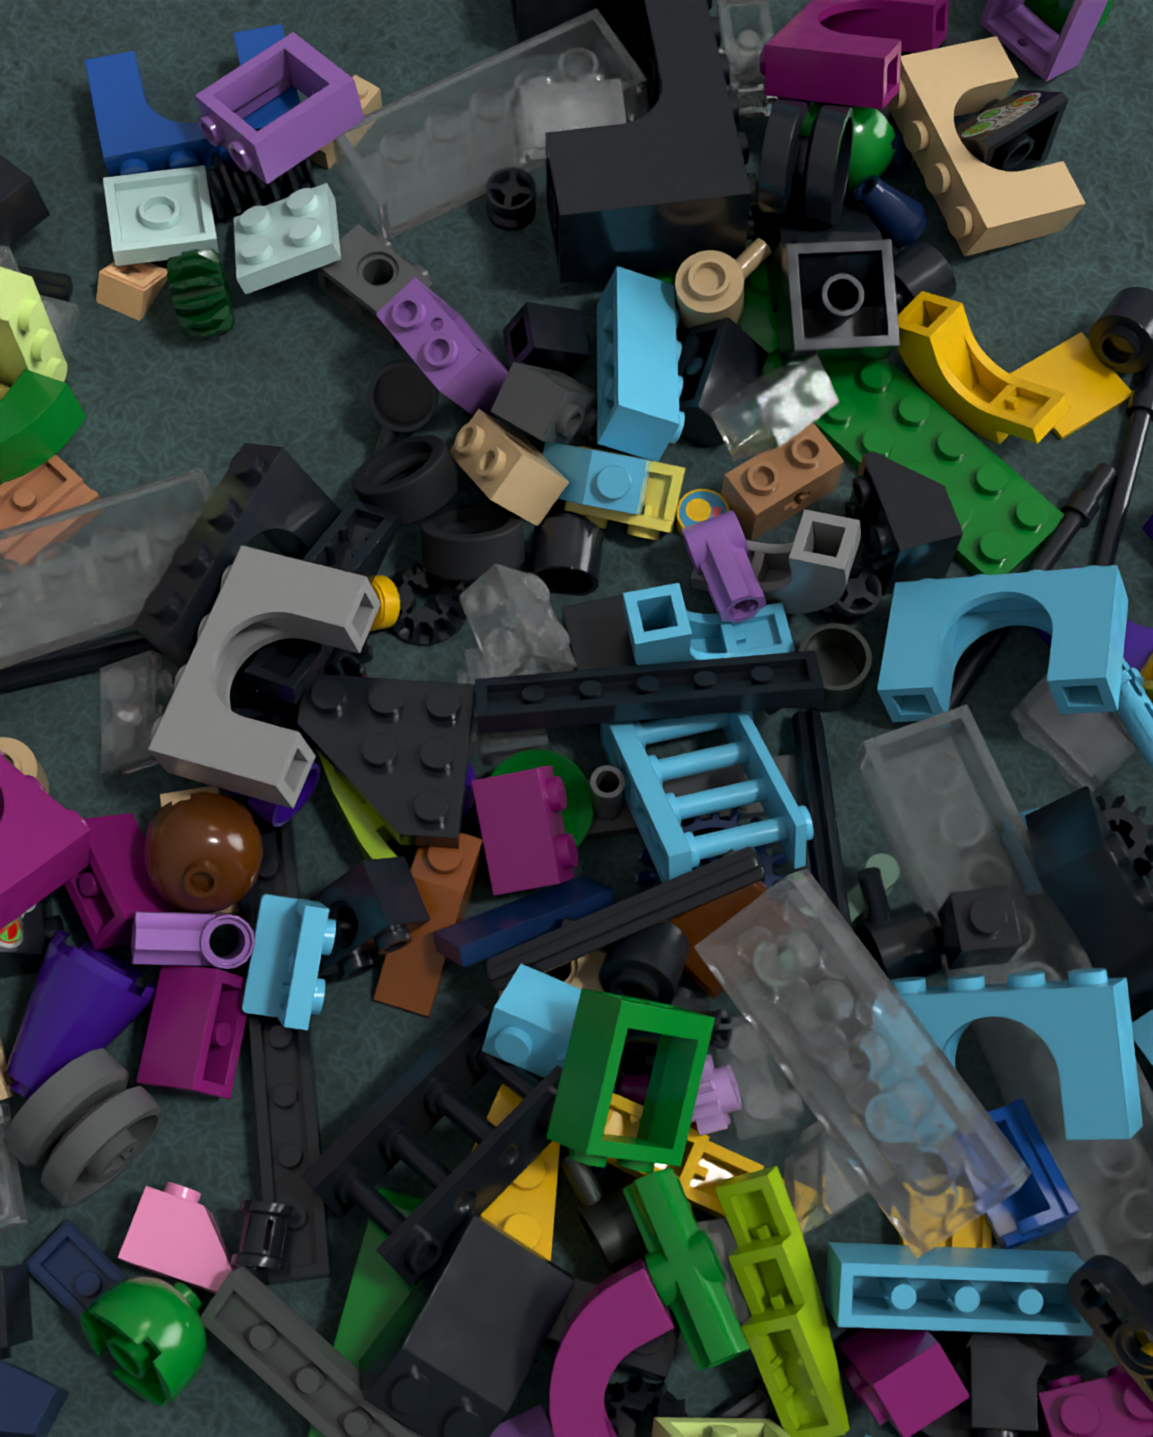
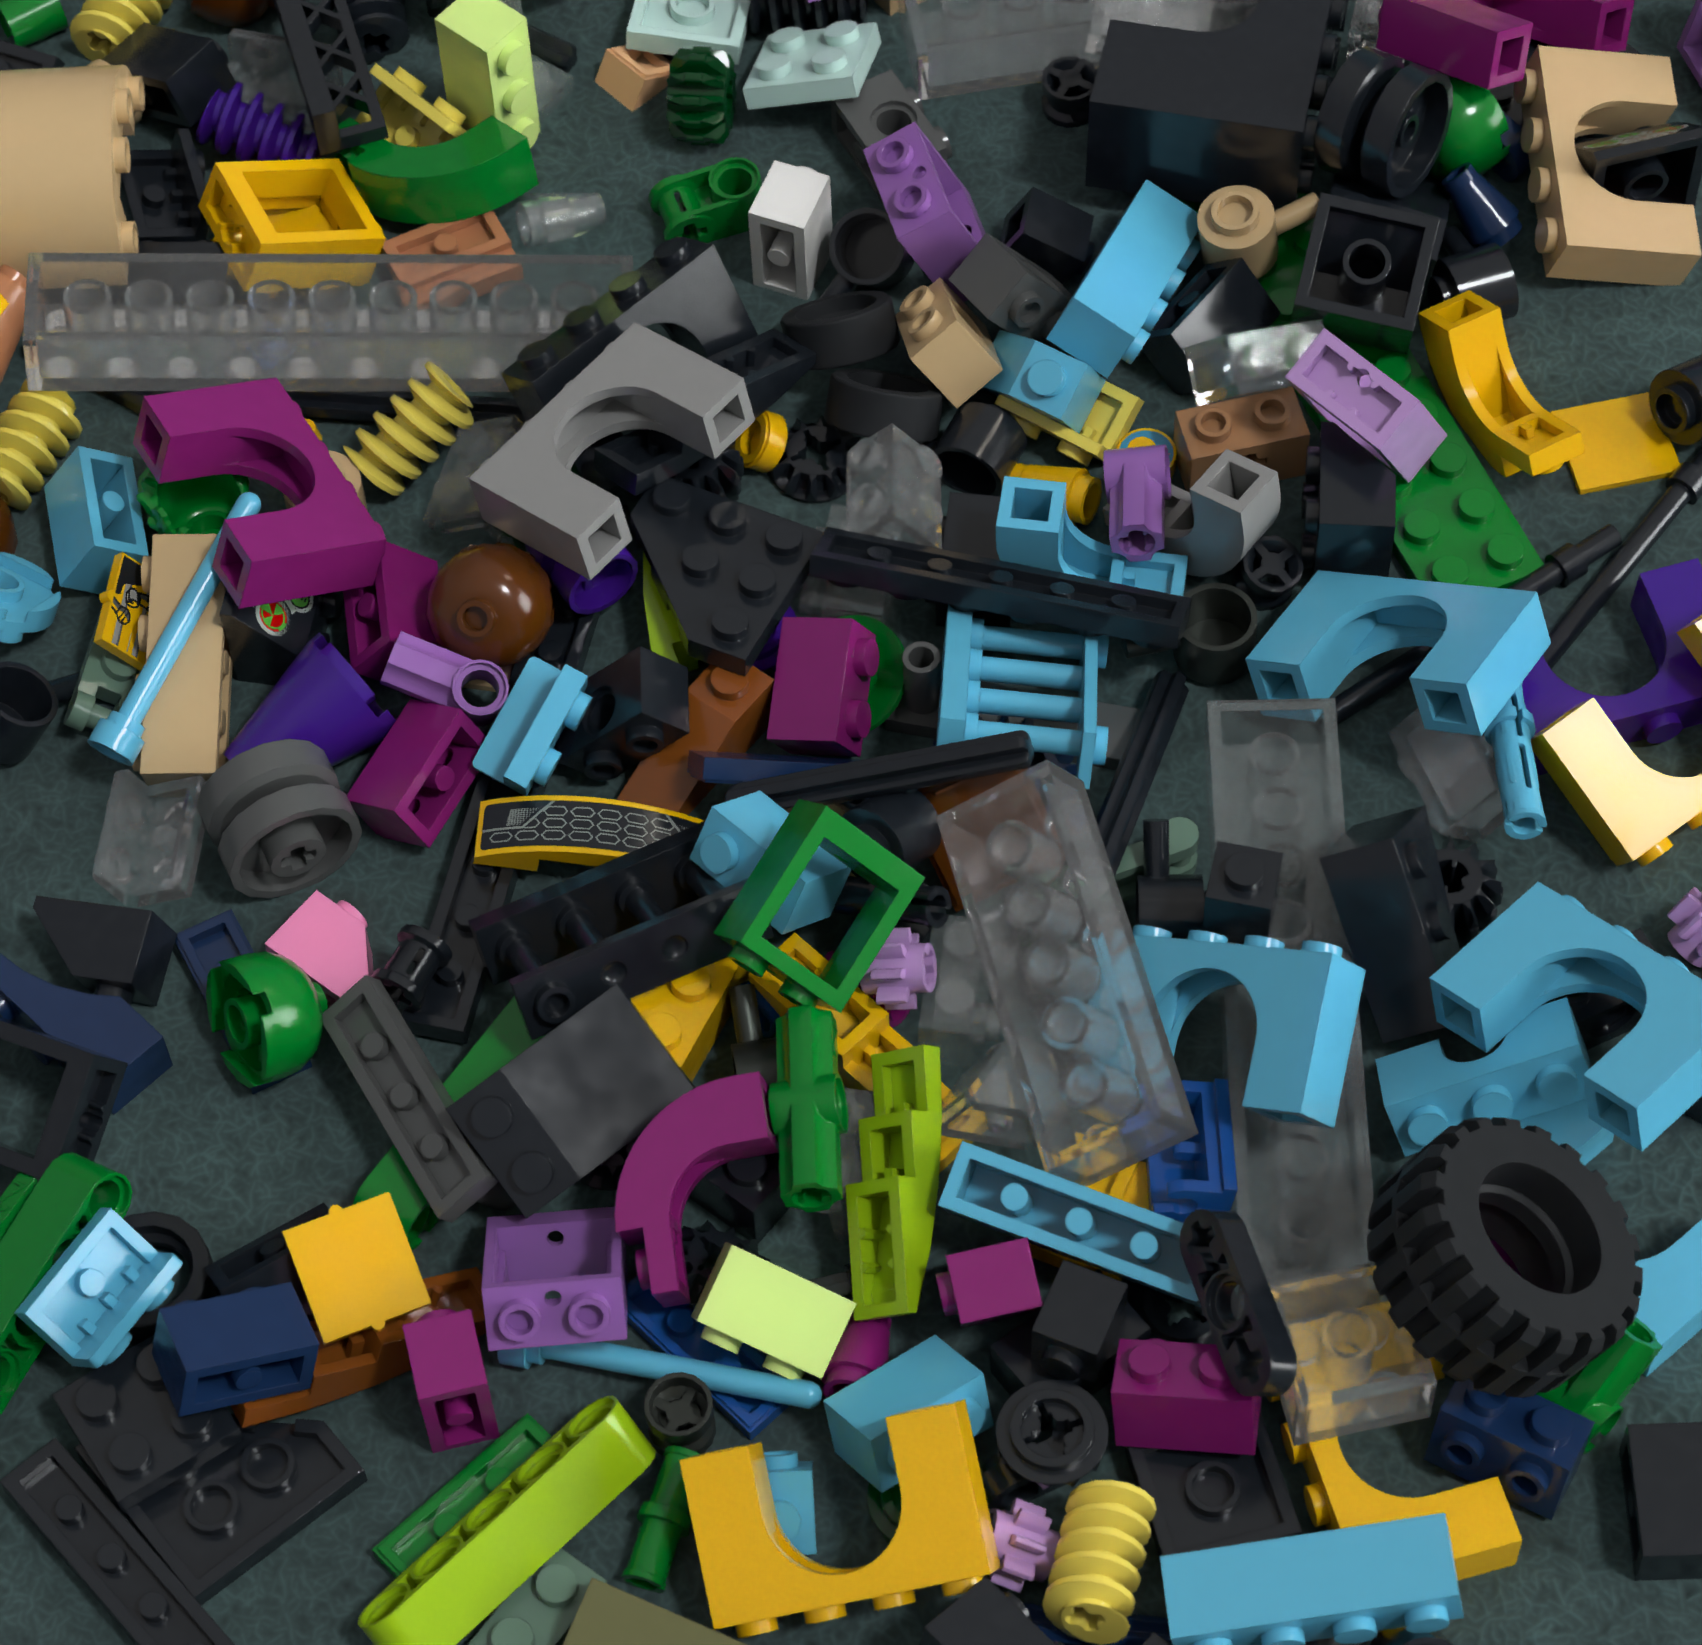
camera: 25 degrees right, 10 degrees down
(65, 697) = (412, 431): none -> light yellow piece
(114, 442) = (558, 217): none -> clear cone
(240, 394) = (711, 201): none -> green piece
(329, 398) = (790, 229): none -> white brick
(364, 1042) = (568, 829): none -> slope
(640, 569) = (1082, 490): none -> yellow cone
(869, 422) = (1366, 405): none -> lavender window

